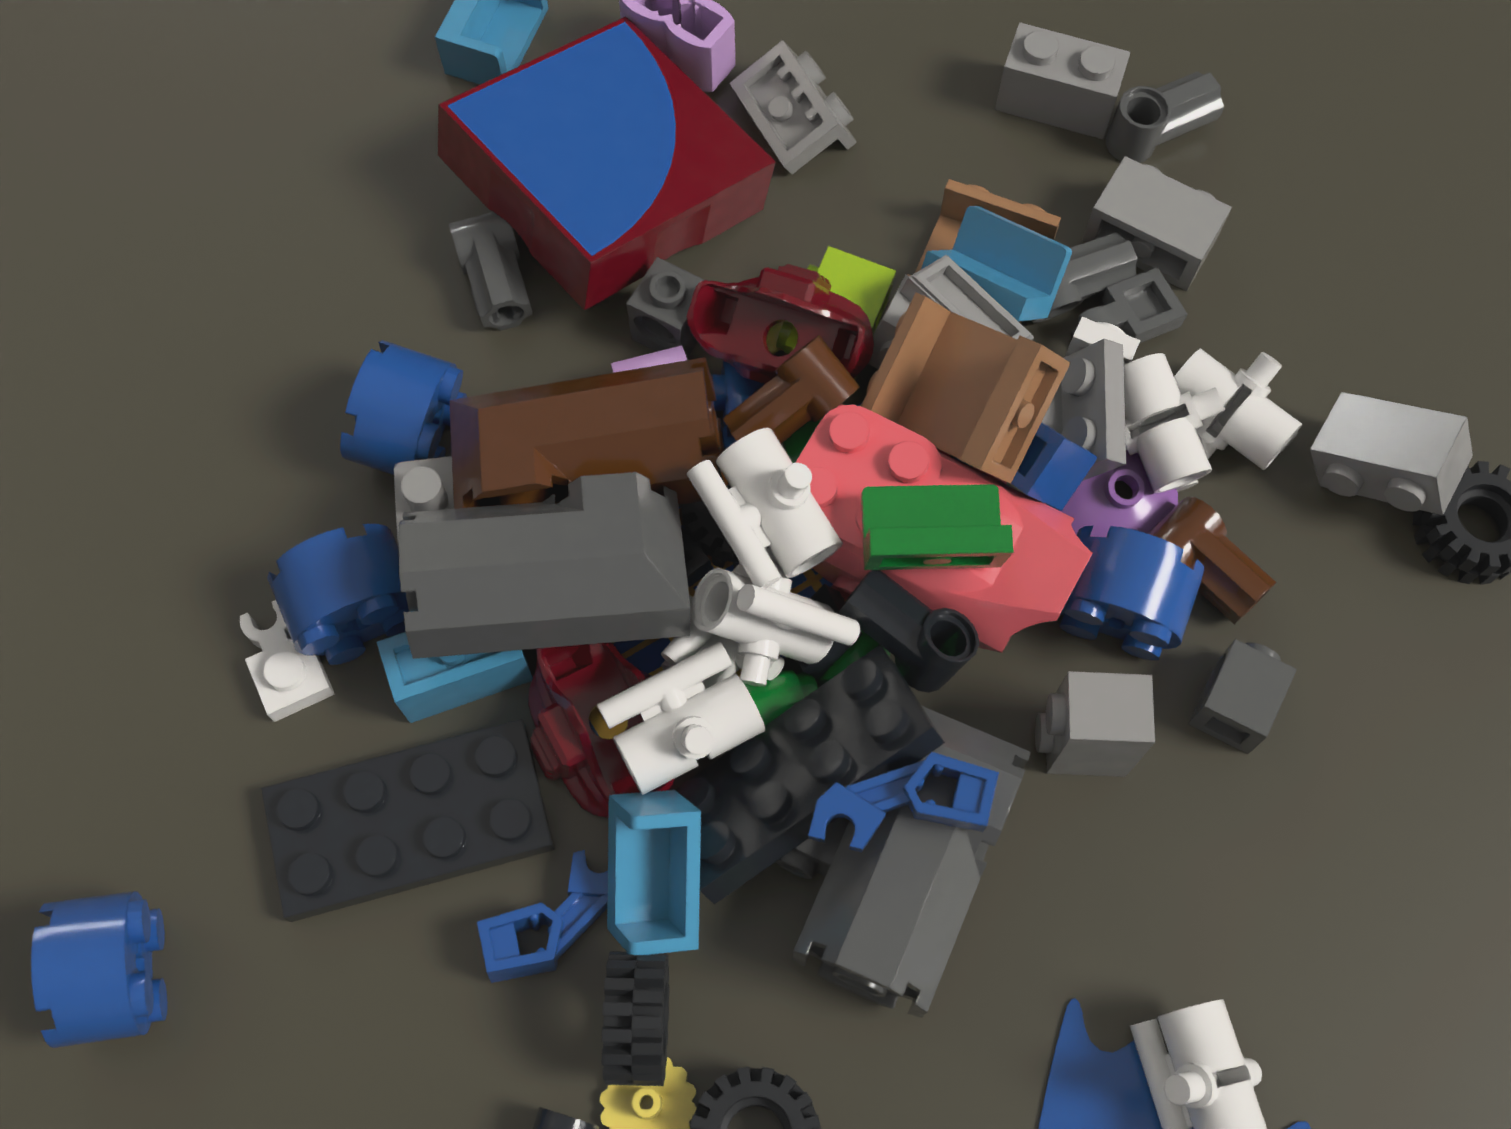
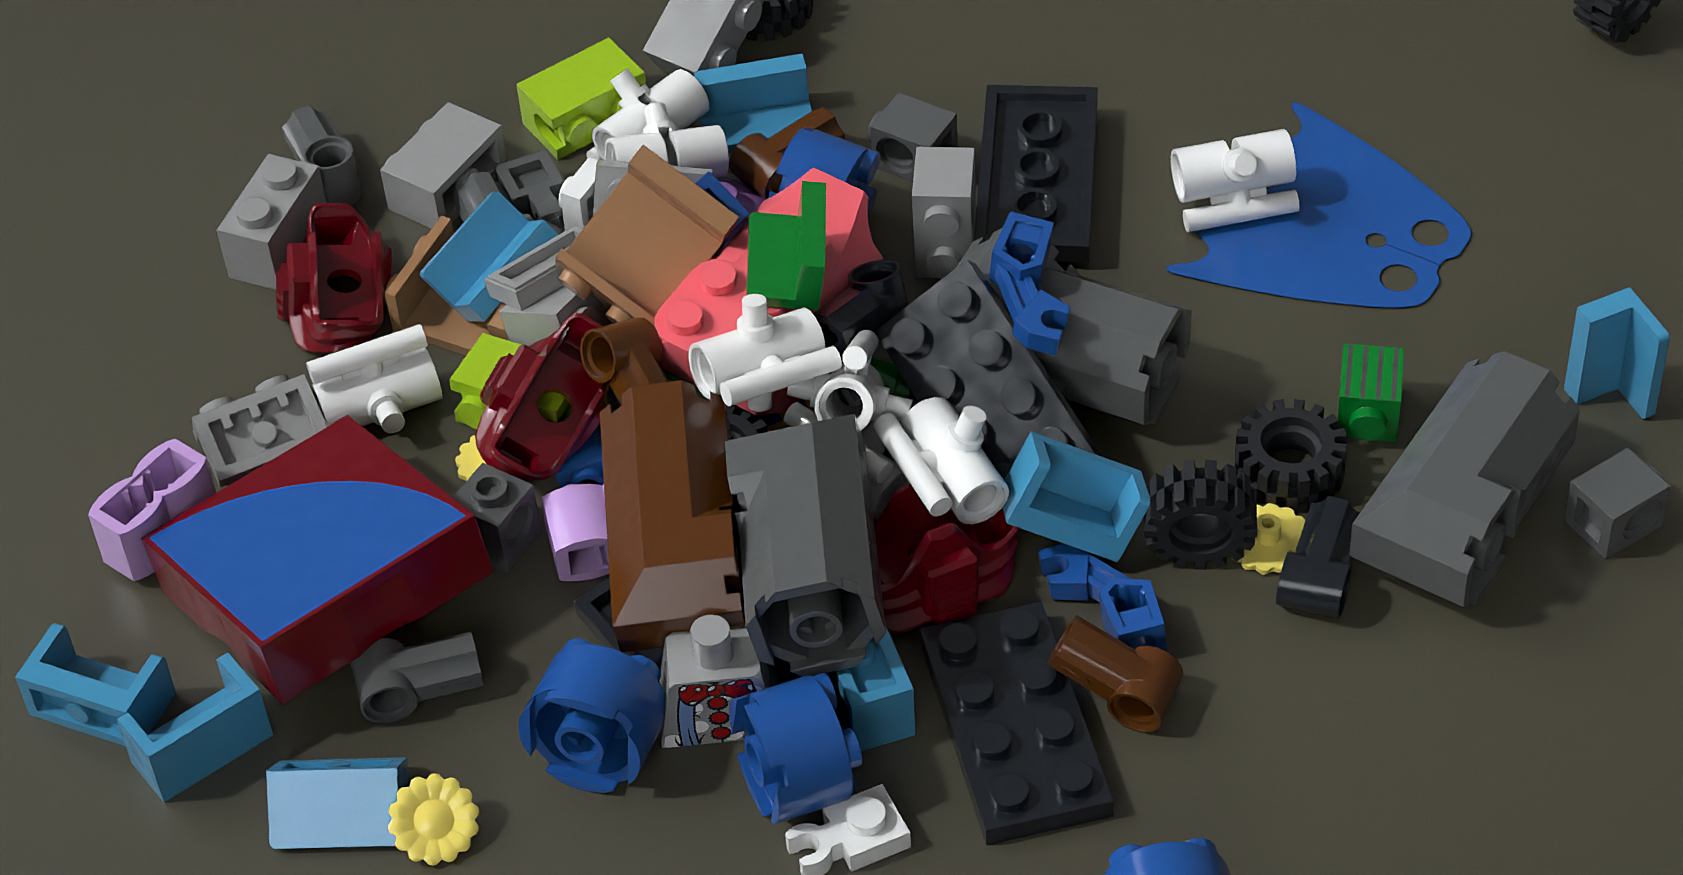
camera: 85 degrees left, 20 degrees down
(325, 297) = (433, 819): none -> light yellow piece
(364, 219) = (333, 802): none -> dark azure panel
(415, 83) = (200, 737): none -> dark azure panel
(428, 938) = (1133, 681): none -> reddish brown piece
(841, 191) = (376, 380): none -> white pin
(1029, 142) = (334, 246): none -> dark red piece
(1207, 841) = (1039, 162): none -> black plate
(1273, 321) = (574, 97): none -> lime brick
(1287, 522) = (755, 97): none -> dark azure panel

